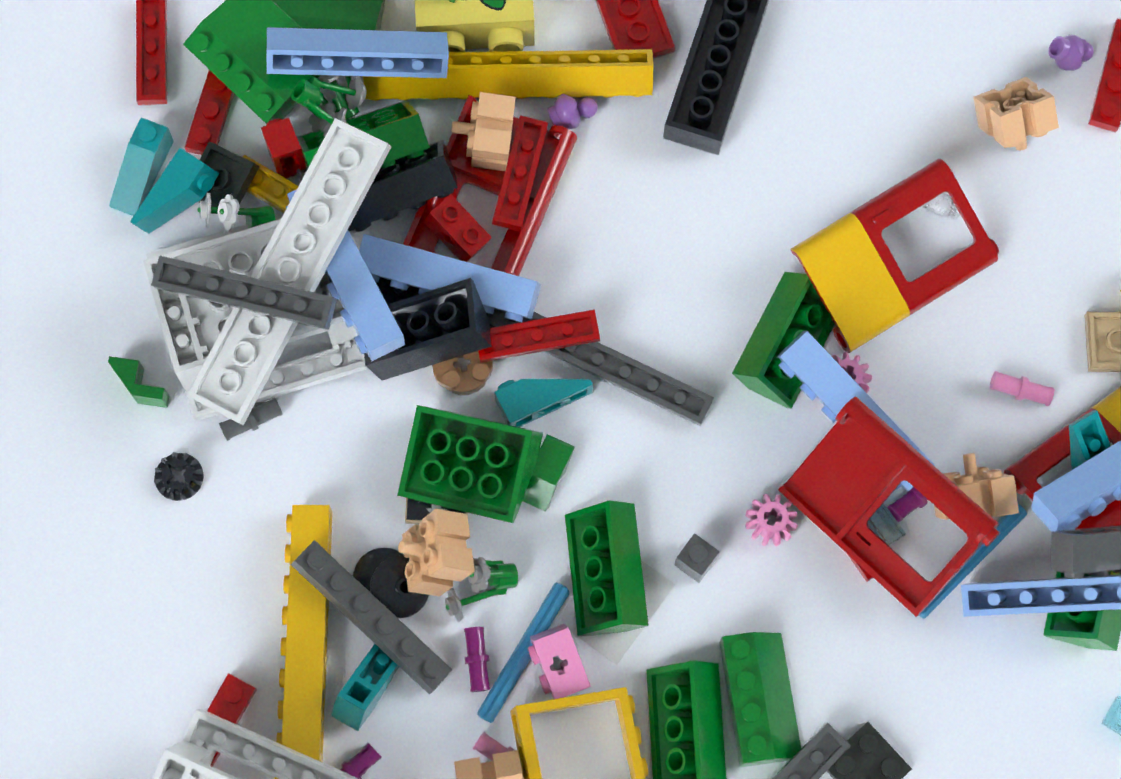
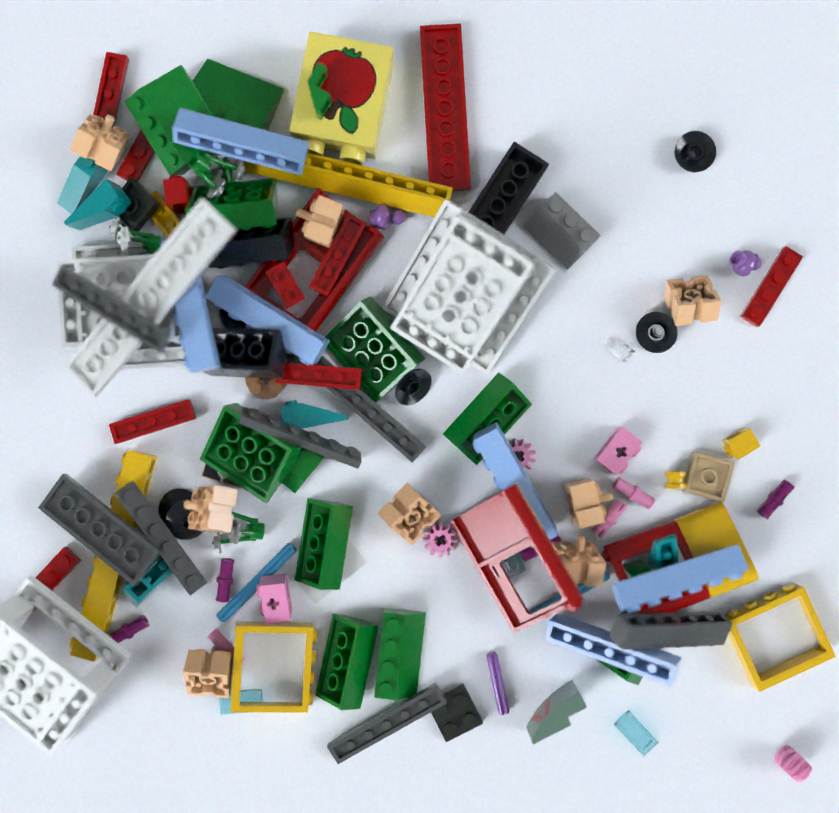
camera: 10 degrees right, 15 degrees up
(131, 375) = (43, 332): green slope -> none
(161, 103) = (100, 141): none -> light nougat brick
(175, 490) = (70, 409): black gear -> none
(257, 416) = (123, 379): dark grey pin -> none
(282, 622) = (100, 529): none -> dark grey plate
(316, 462) = (152, 421): none -> red plate
(525, 418) = (295, 435): none -> dark grey plate
(601, 274) = (368, 343): none -> green slope
(663, 157) = (439, 269): none -> white plate
(672, 320) = (413, 387): none -> black dish
(696, 558) = (383, 552): dark grey brick -> none
(718, 489) = (409, 514): none -> light nougat brick
(814, 71) = (561, 230): none -> light grey slope
(859, 274) = (546, 386): piece -> none
(915, 706) = (498, 684): none -> medium lavender axle
(958, 412) = (584, 502): none -> light nougat brick
(968, 171) = (650, 339): none -> black dish
(970, 348) = (619, 439): none -> bright pink brick
(999, 431) = (612, 515): none -> bright pink pin
(1012, 715) = (554, 712): none -> sand green slope
(1073, 354) = (675, 479): none -> yellow wheel

